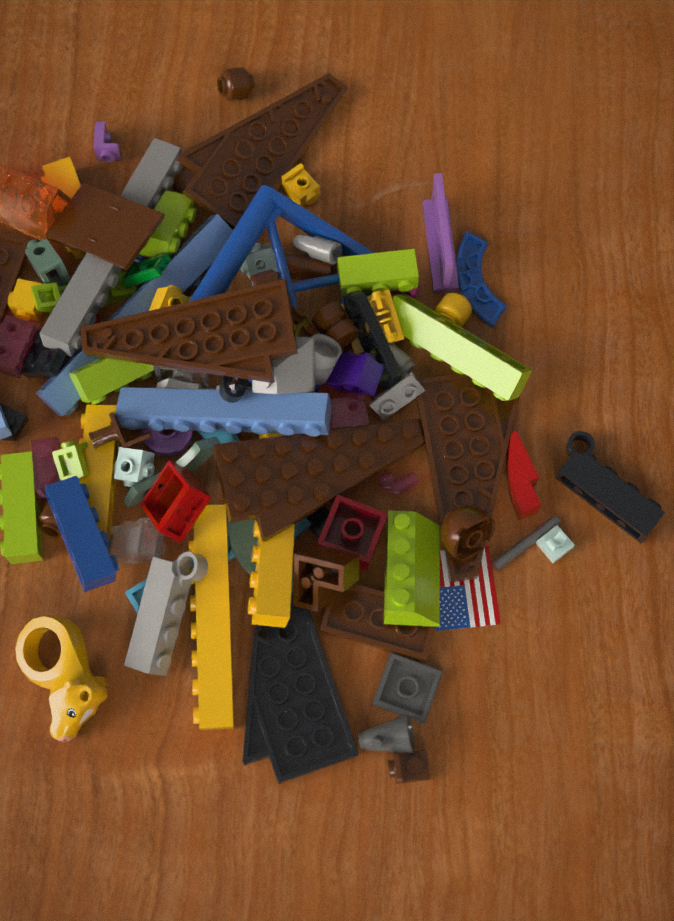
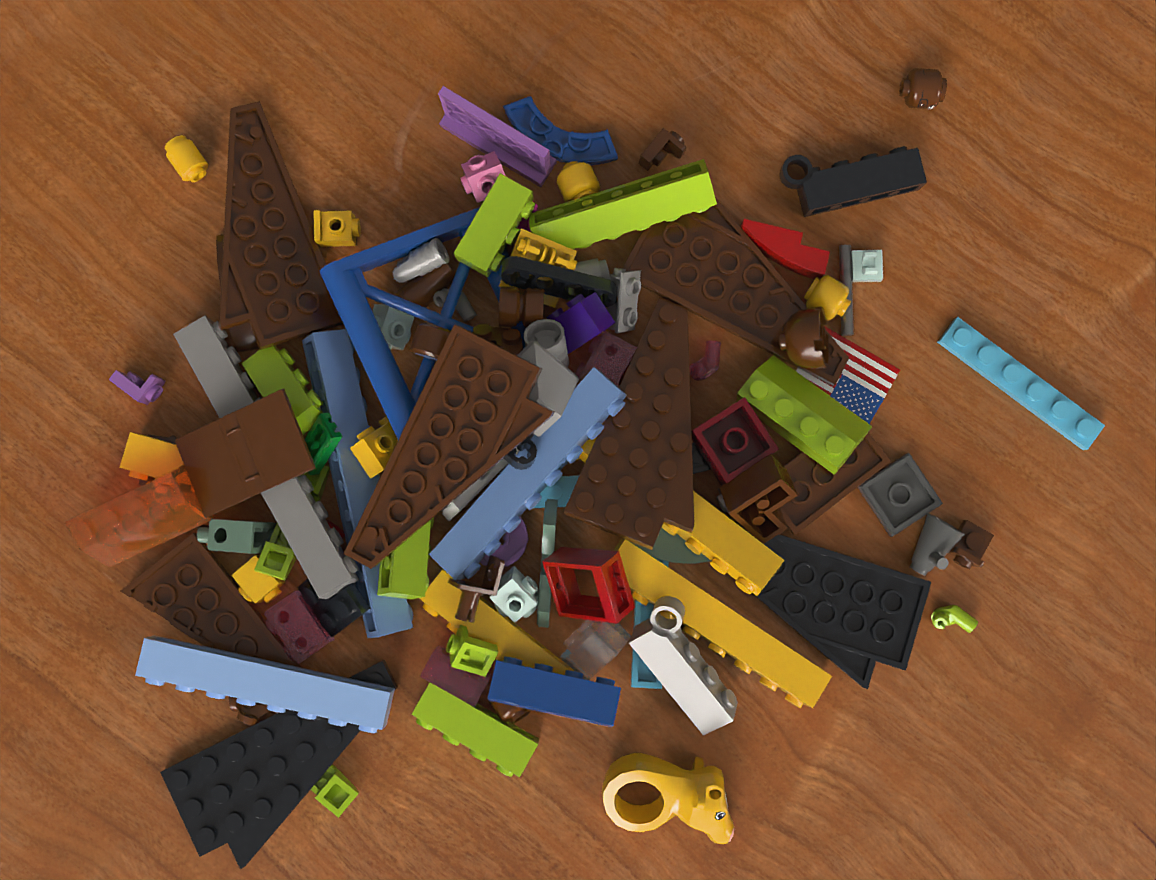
camera: 55 degrees left, 15 degrees up
(235, 84) = (168, 208): reddish brown head -> none
(276, 72) = (186, 158): none -> yellow brick
(312, 296) = (463, 306): none -> light grey arm
(346, 791) = (953, 615): none -> lime arm
(410, 240) = (481, 174): none -> bright pink brick
(509, 529) = (830, 295): none -> yellow head
(521, 344) = (657, 152): none -> reddish brown bracket
(559, 720) = (1021, 384): none -> medium azure plate

